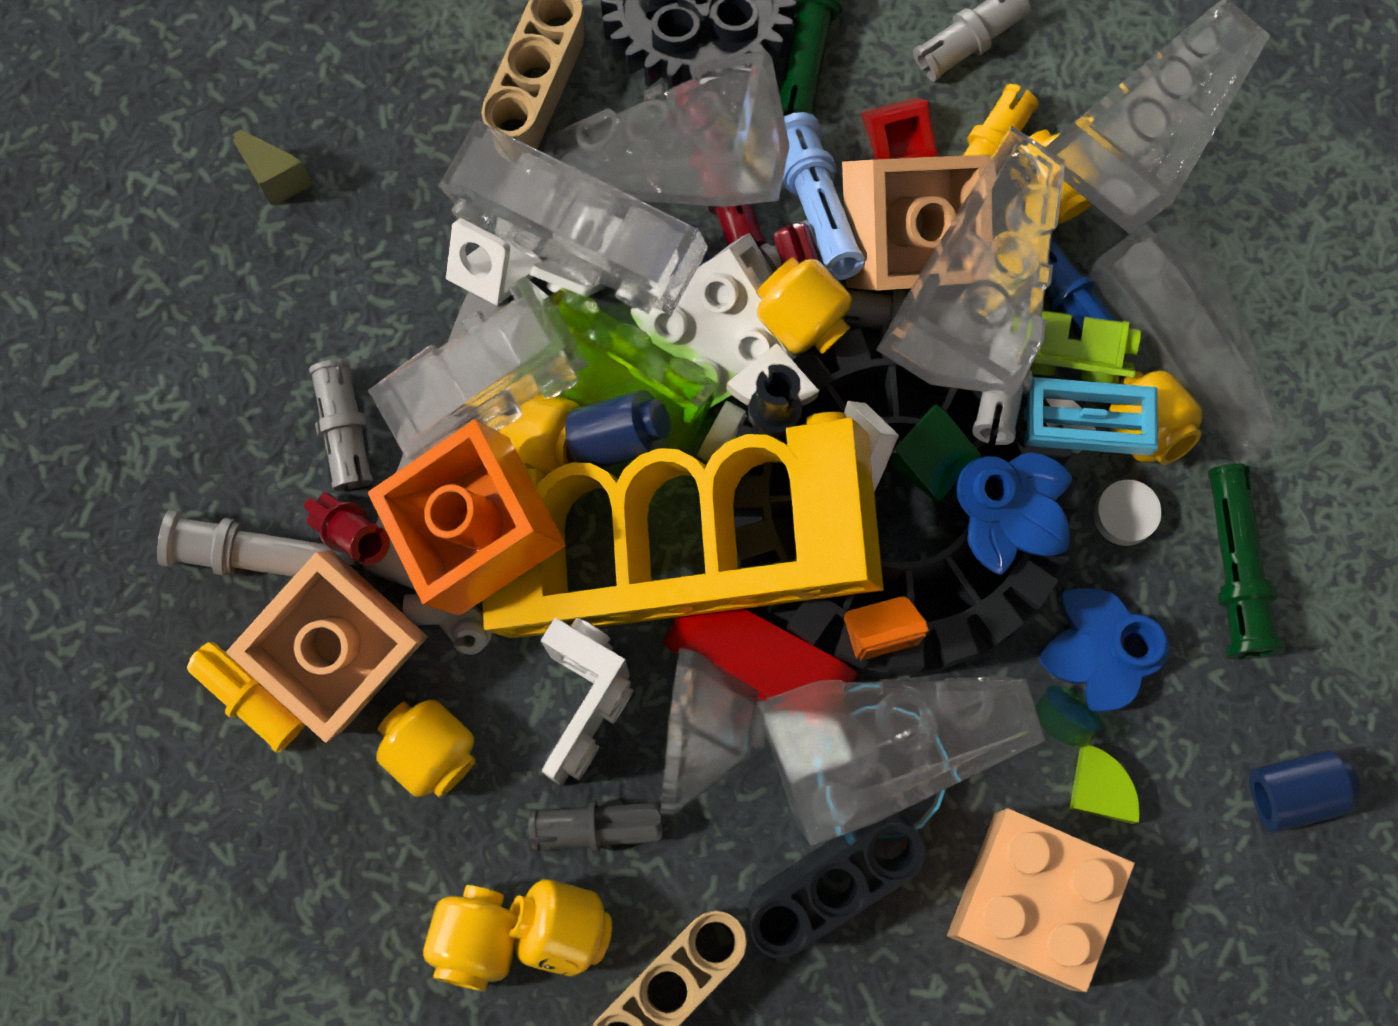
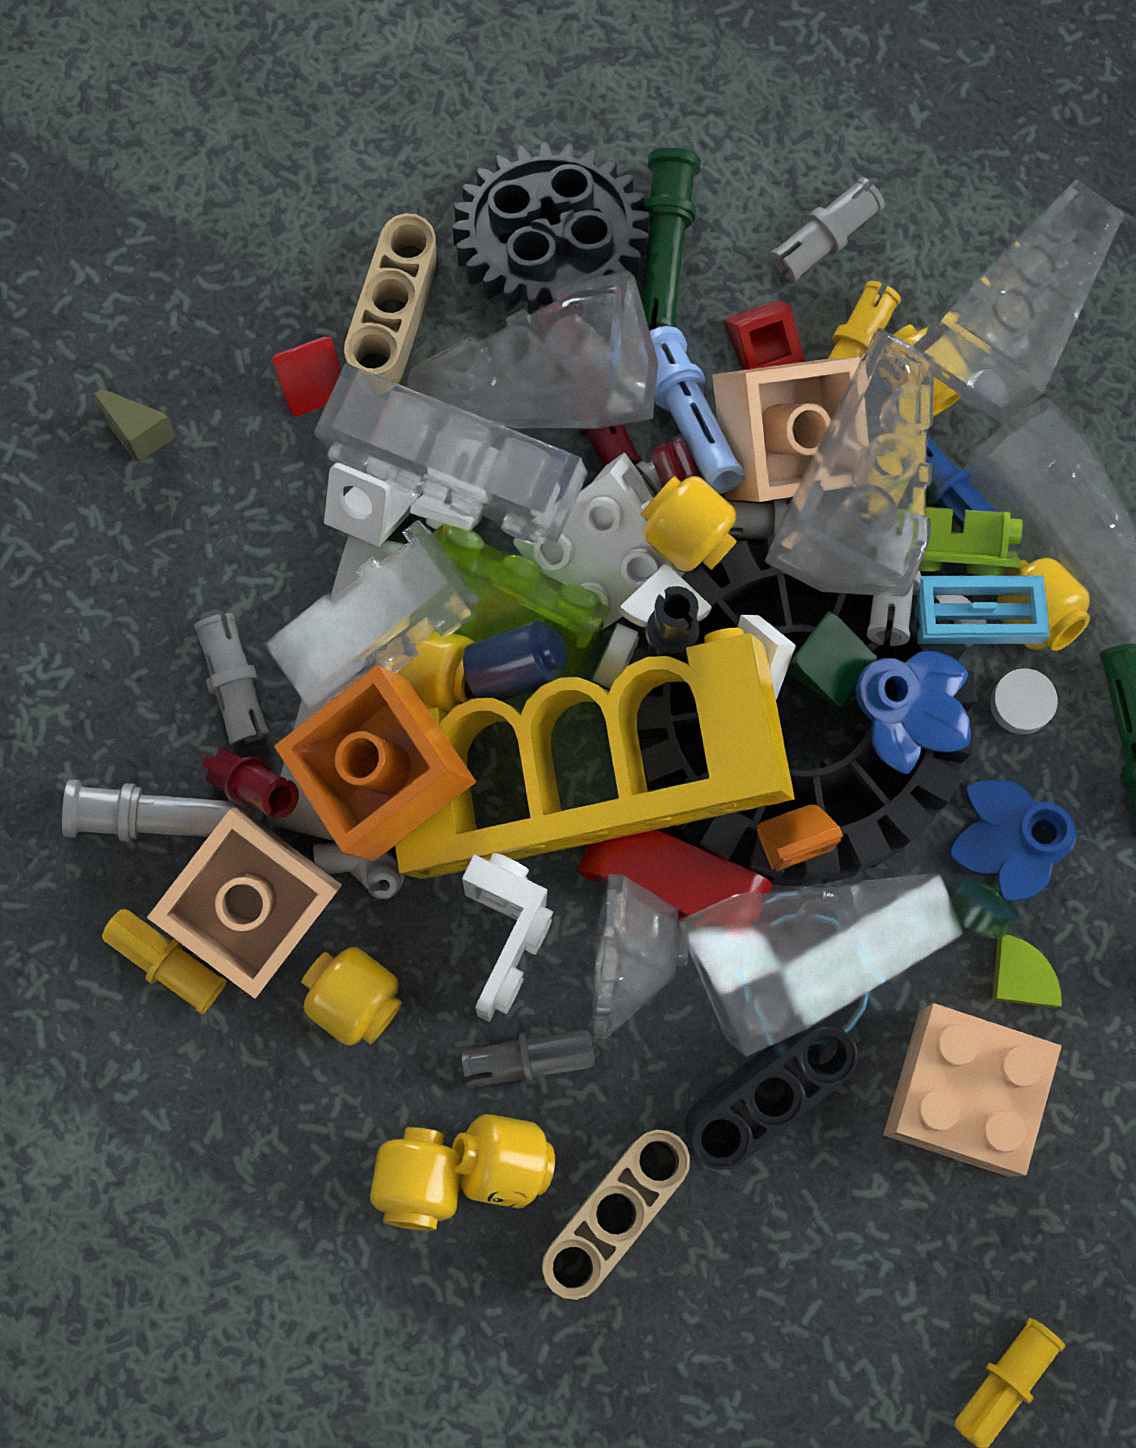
camera: 10 degrees left, 0 degrees up
(442, 131) = (307, 375): none -> red slope

